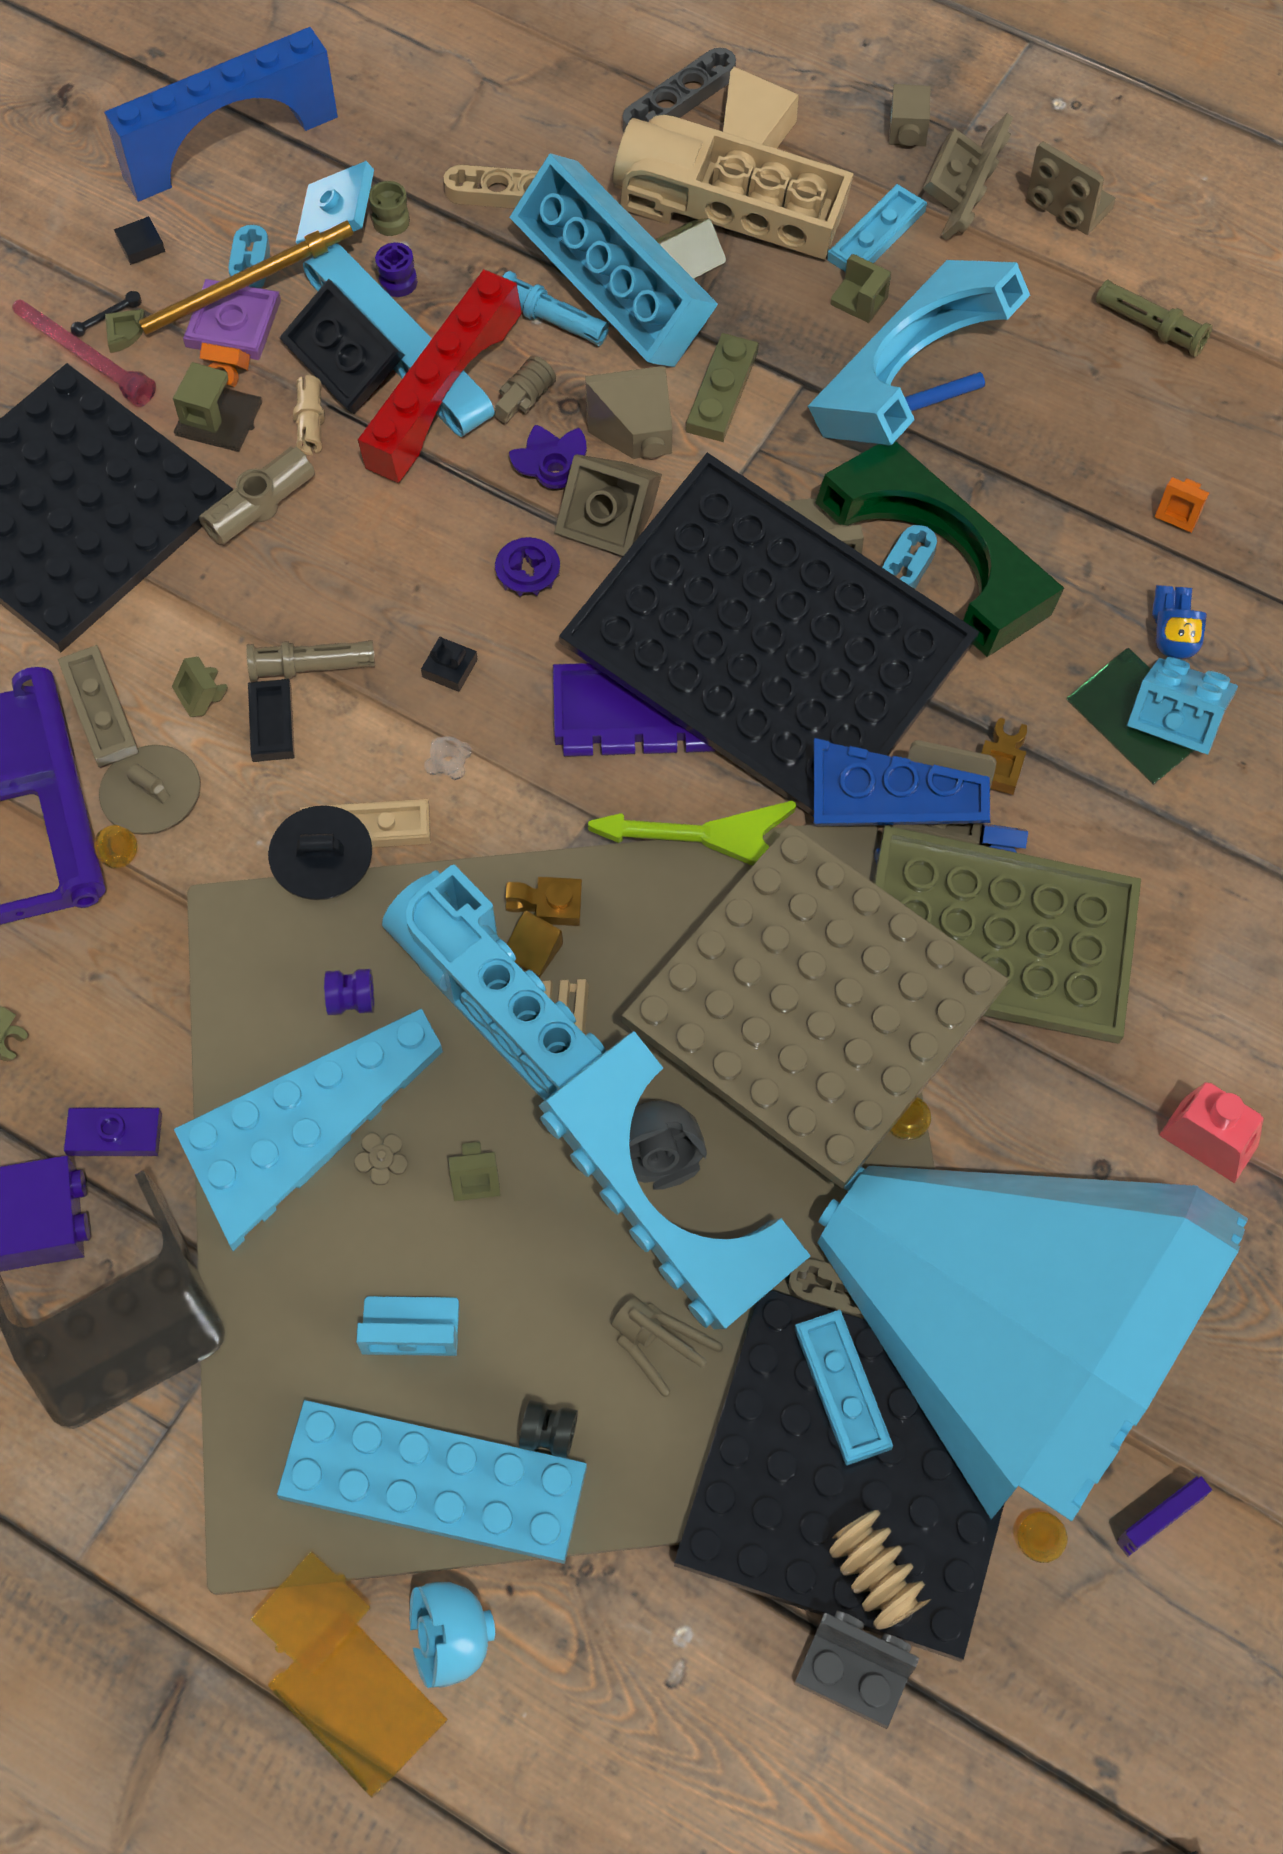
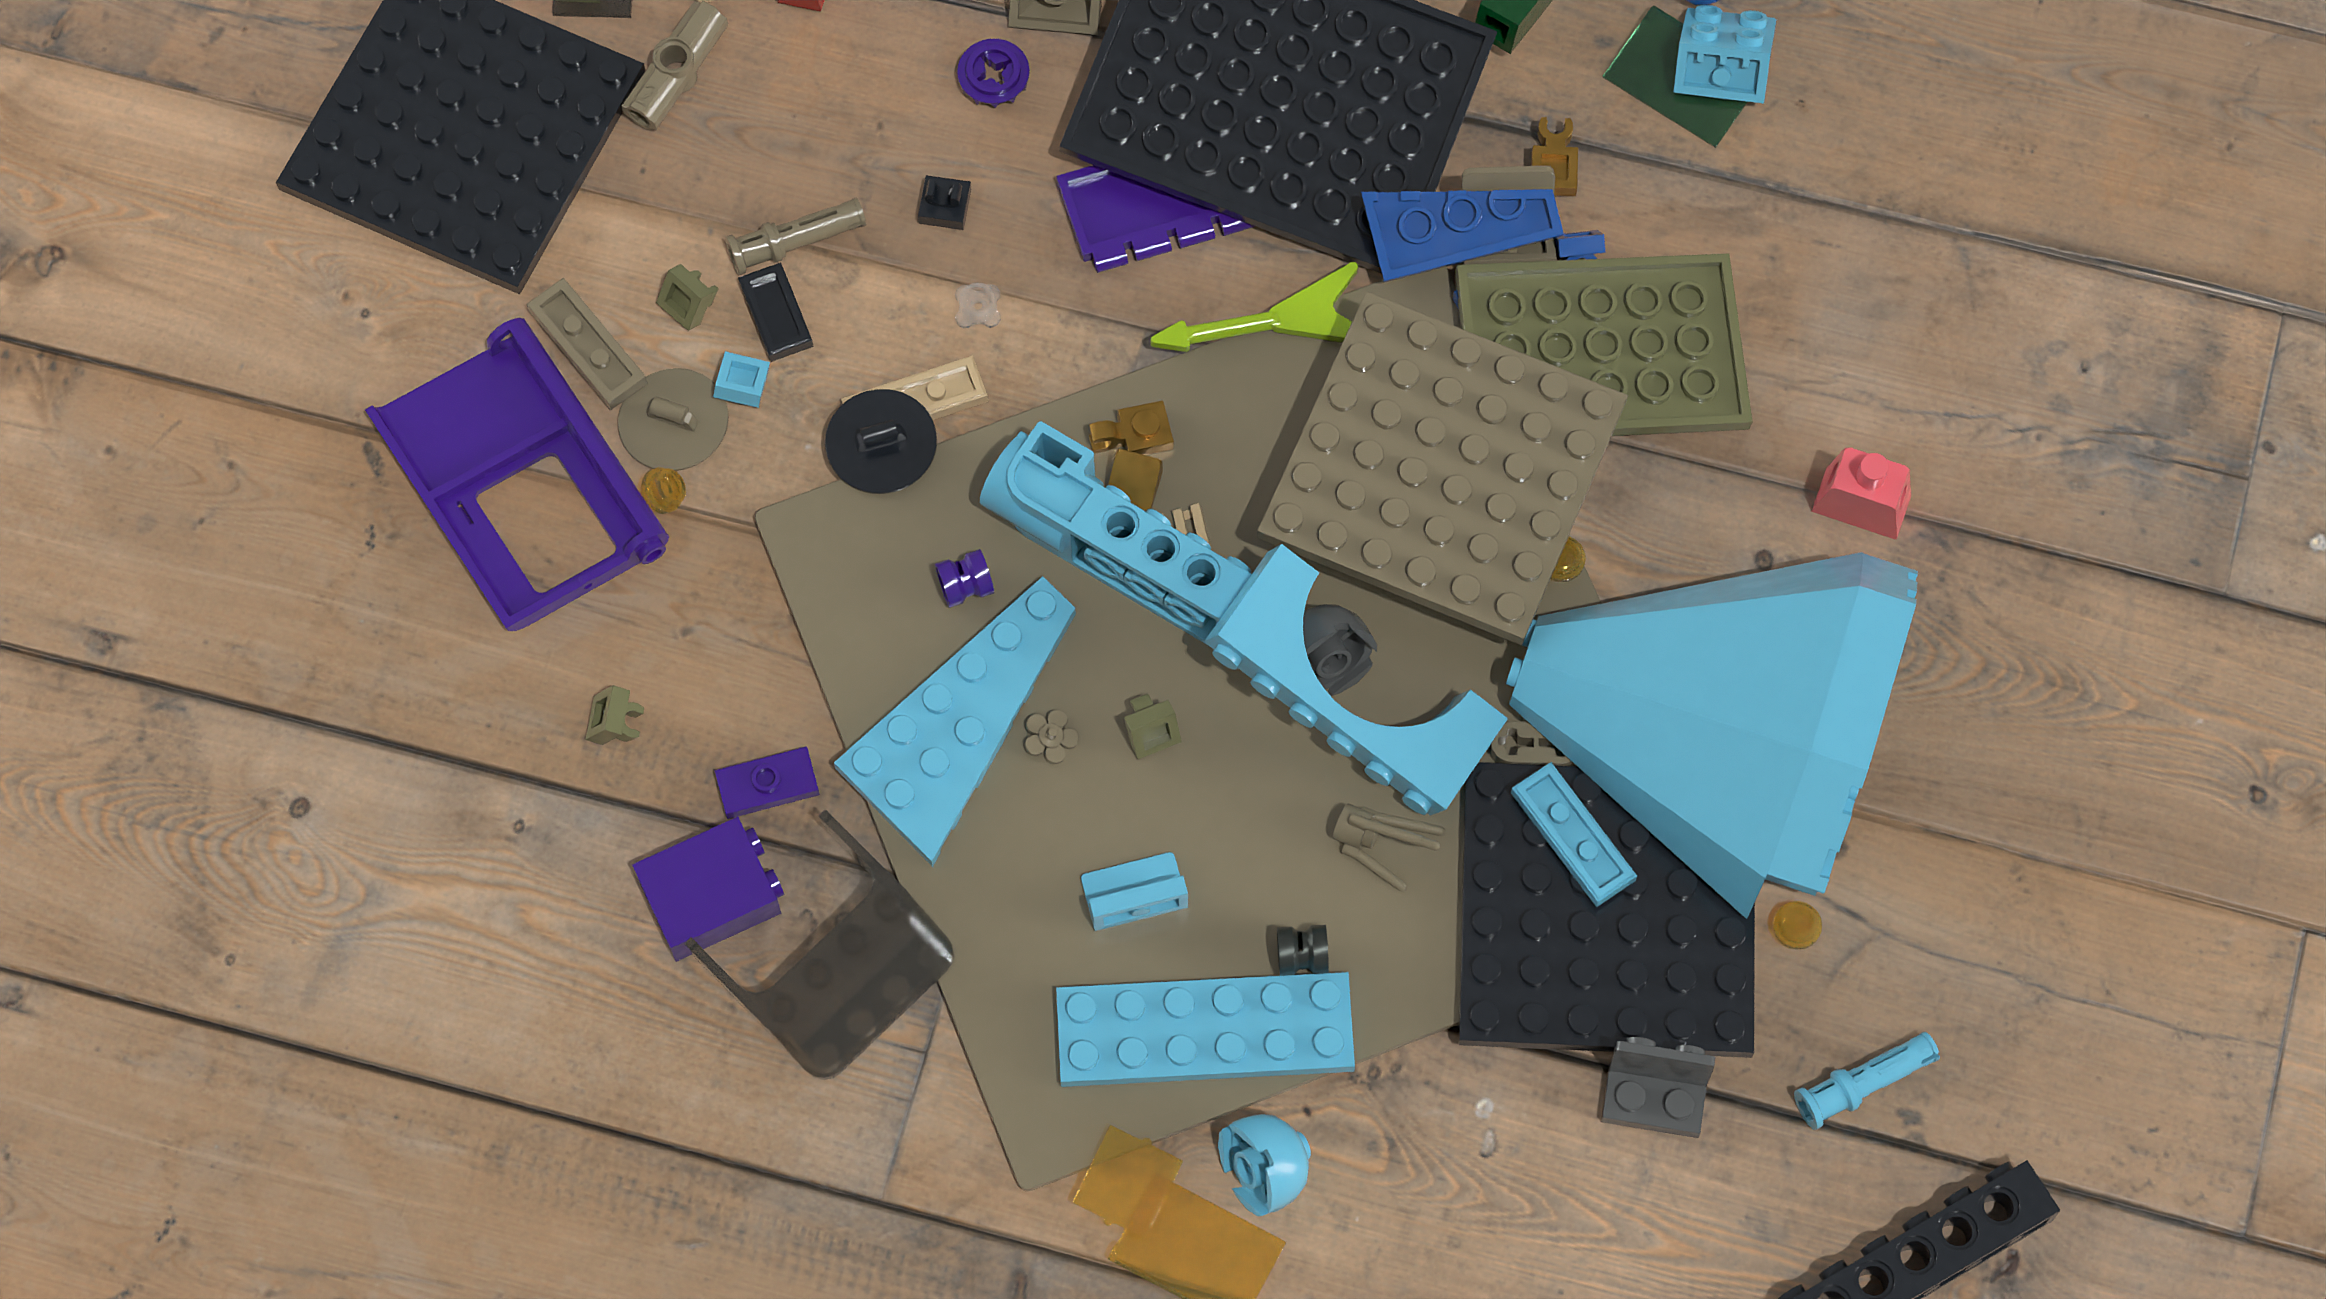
camera: 15 degrees left, 5 degrees up
(218, 768) = (741, 379): none -> medium azure plate
(877, 1571) = (1654, 992): tan piece -> none
(1051, 1722) = (1847, 1088): none -> medium azure pin
(1163, 1515) = (1905, 874): dark purple tile -> none

